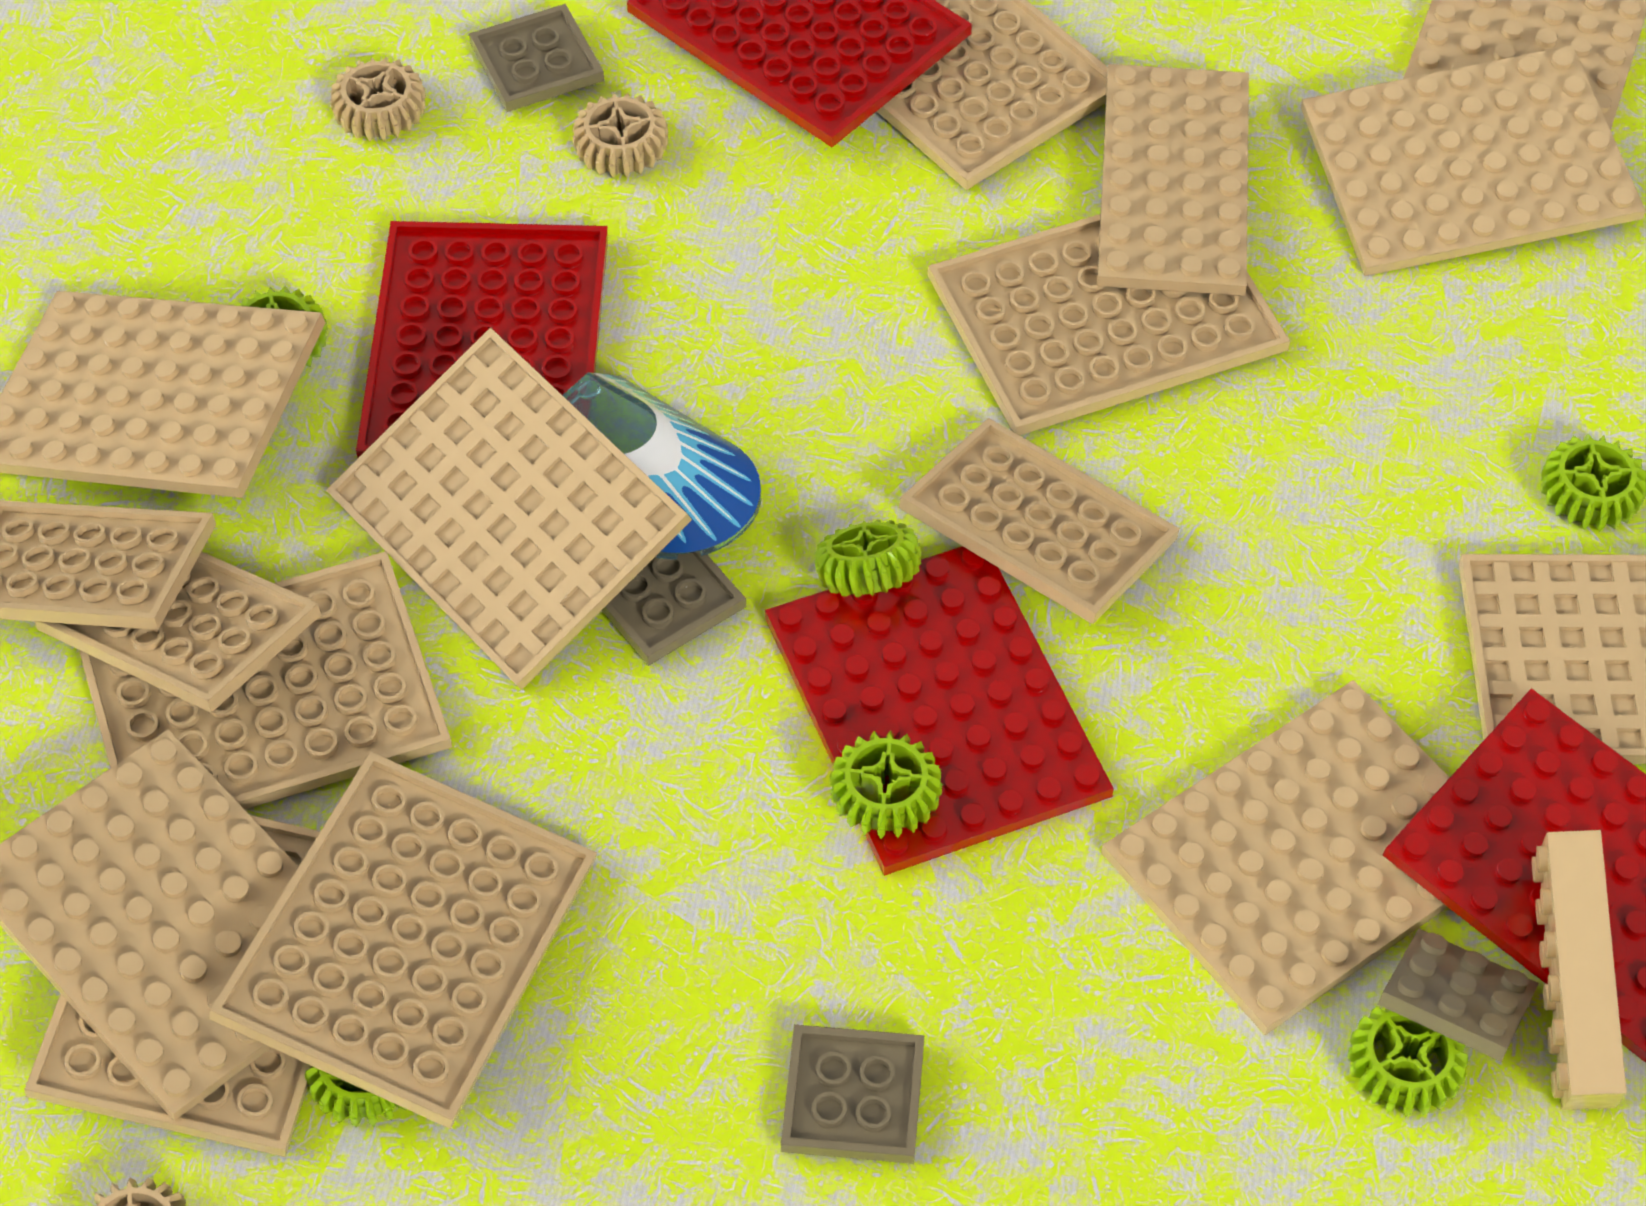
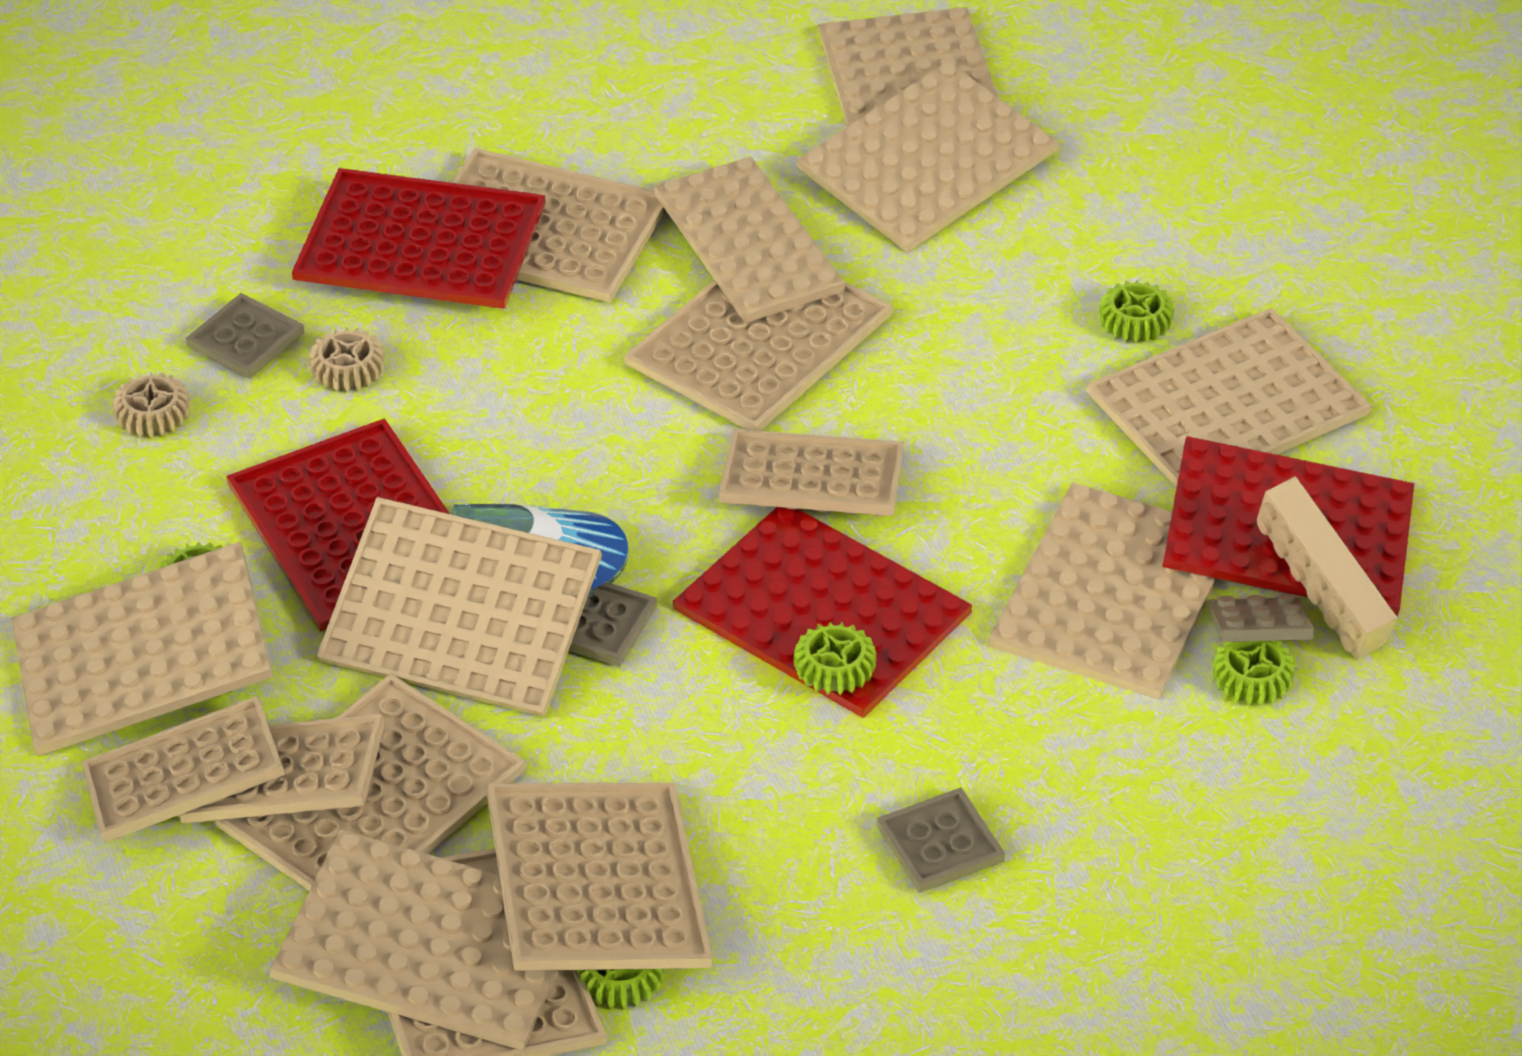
camera: 30 degrees left, 10 degrees down
(868, 558) = (722, 538): lime gear -> none

